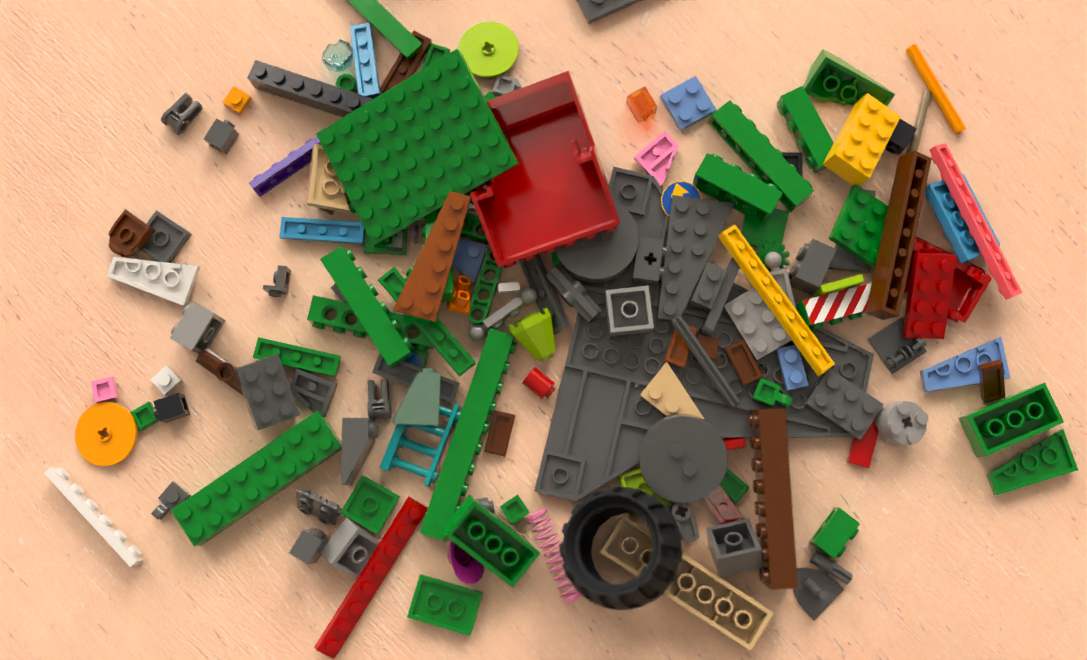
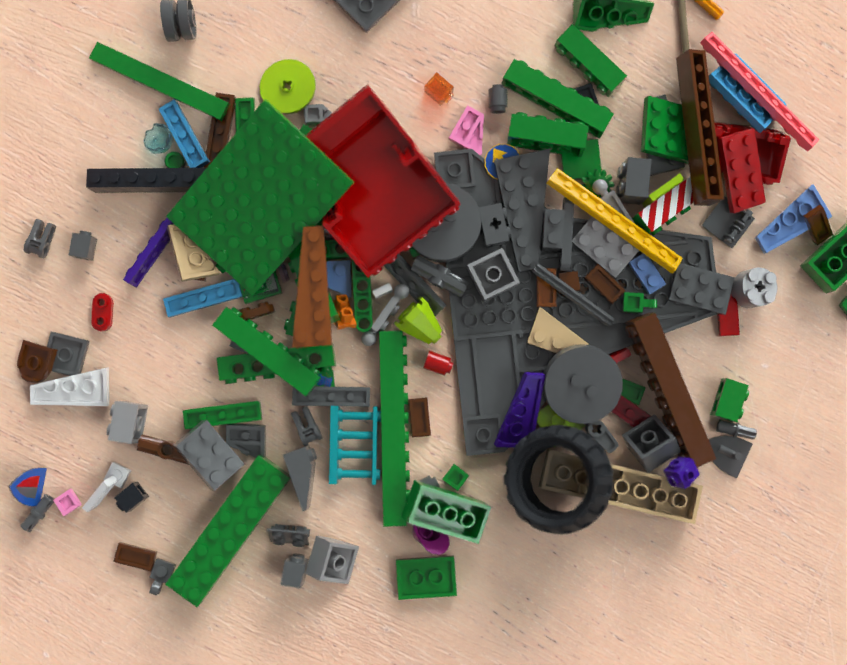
camera: 20 degrees left, 5 degrees up
(69, 390) = (37, 513): none -> dark grey pin
(72, 358) = (28, 486): none -> shield
(96, 446) = (76, 551): light orange piece -> none
(99, 521) = (94, 608): white plate -> none
(140, 392) = (100, 493): none -> white tile
(144, 416) = (110, 512): green tile -> none
(151, 471) = (135, 556): none -> reddish brown tile
(214, 208) = (104, 311): none -> red plate
(237, 100) = (84, 209): light orange plate -> none
(281, 280) = (184, 354): dark grey bracket -> none
(370, 504) = (332, 517): green plate -> none
(370, 578) = (356, 577): red plate -> none
(379, 264) = (263, 309): none -> reddish brown plate
(421, 400) = (343, 415): sand green slope -> none
(434, 331) = (335, 353): green tile -> none
(534, 516) = (475, 478): bright pink piece -> none
(610, 464) = (523, 411): none -> dark purple wing
(688, 103) = (478, 73): medium blue plate -> none
(698, 135) = (497, 99): none -> dark grey brick
(755, 589) = (681, 472): none -> dark purple brick
(861, 140) = (640, 55): yellow brick -> none
(900, 137) = (669, 40): black brick -> none

